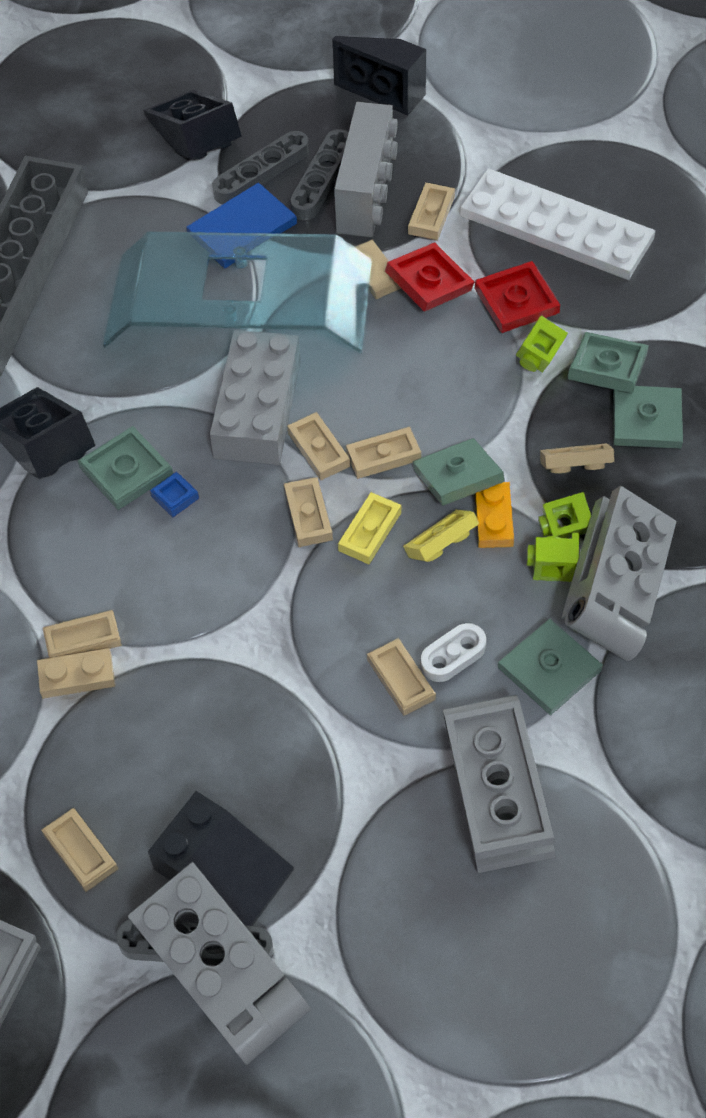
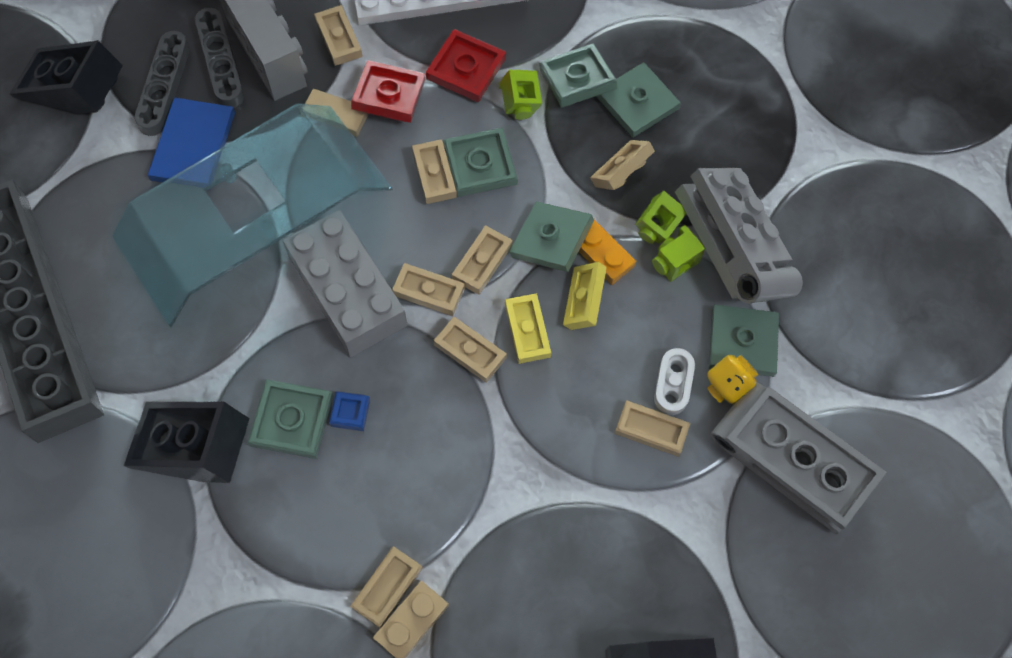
camera: 45 degrees left, 10 degrees up
(409, 361) = (434, 171): none -> tan plate
(455, 378) = (480, 162): none -> sand green plate
(501, 679) = (731, 379): none -> yellow head

